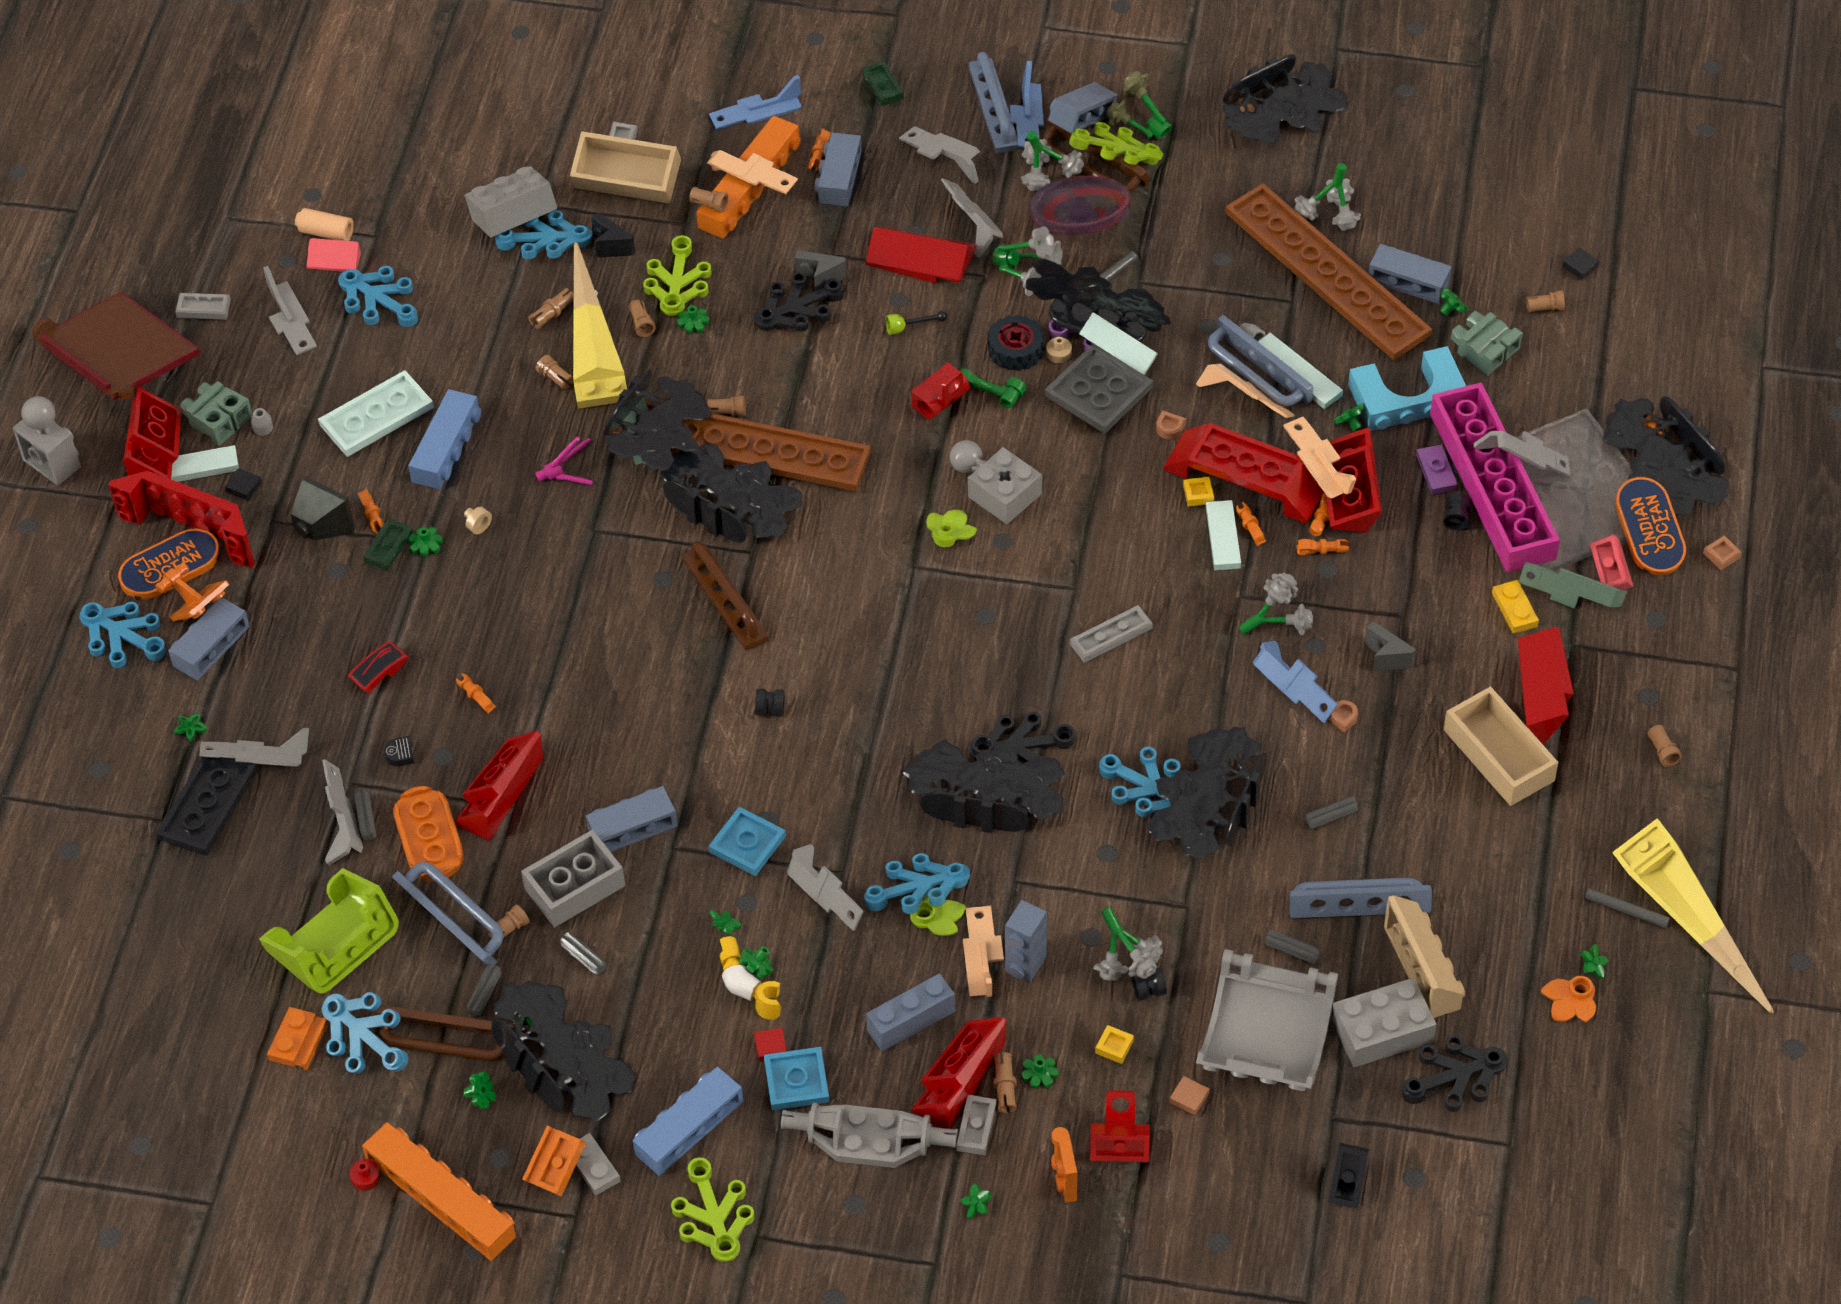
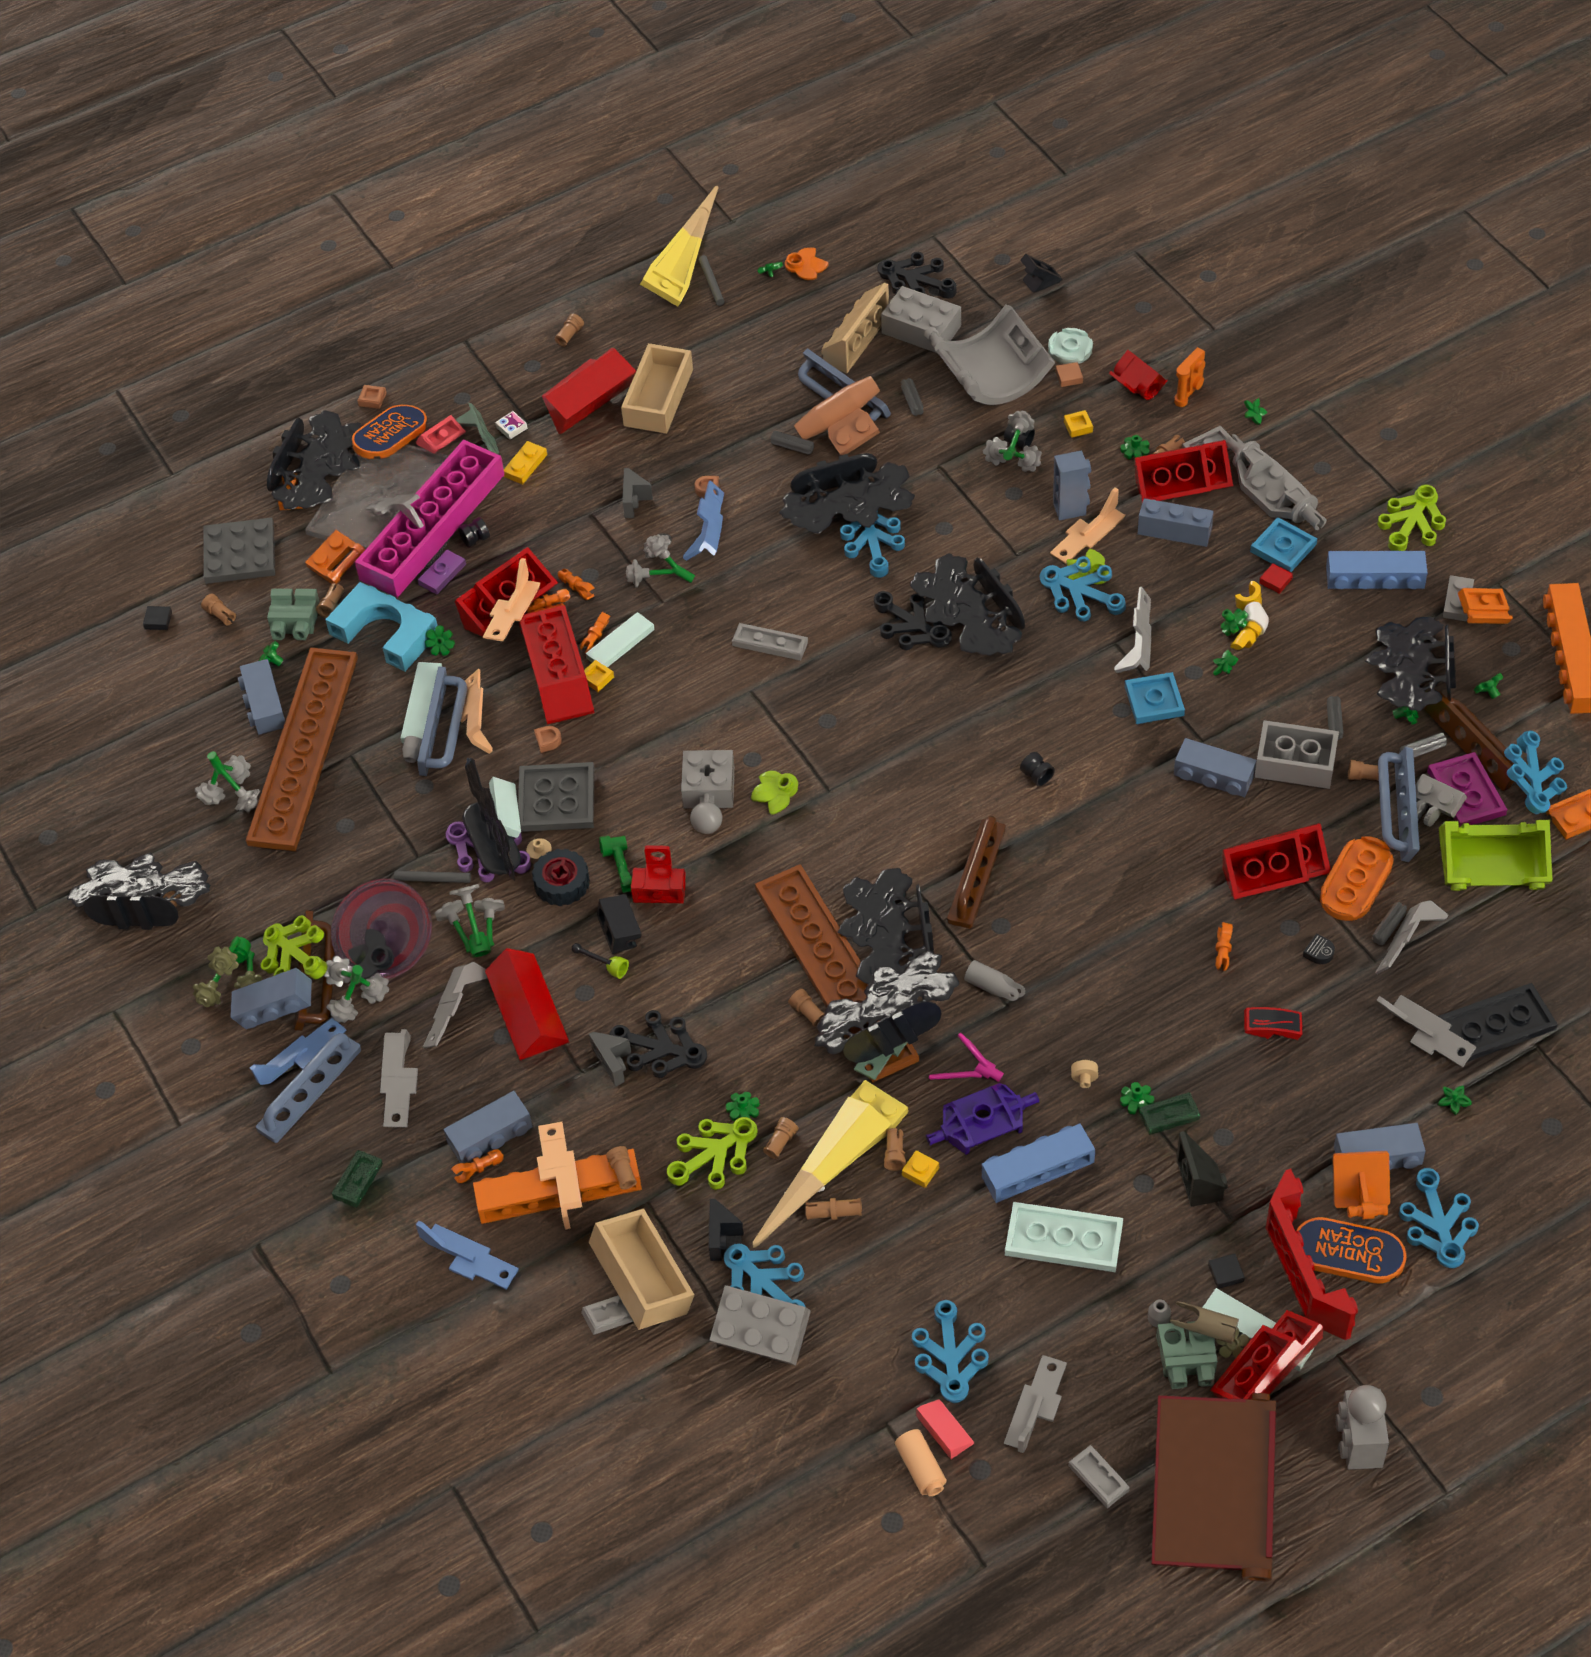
camera: 130 degrees left, 0 degrees up
(193, 443) = (1227, 1348): none -> olive plant
(211, 413) = (1210, 1323): none -> dark tan piece
(371, 510) = (1152, 1155): orange piece -> none
(407, 976) = (1470, 777): none -> magenta plate
(423, 942) = (1438, 797): none -> light grey hinge
(512, 454) = (967, 1130): none -> dark purple plate
(524, 379) = (920, 1169): none -> yellow plate
(620, 525) = (993, 981): none -> light grey piece
(932, 344) = (618, 923): none -> black hinge
(1056, 184) = (369, 954): none -> black plate
(1226, 1129) = (1070, 346): none -> light aqua tile
(1316, 857) = (843, 417): none -> nougat plate
(1475, 372) = (329, 602): none -> medium nougat pin
(1534, 404) = (331, 553): none -> orange plate
(1575, 626) = (511, 425): none -> tile
(1609, 356) = (239, 550): none -> dark grey plate

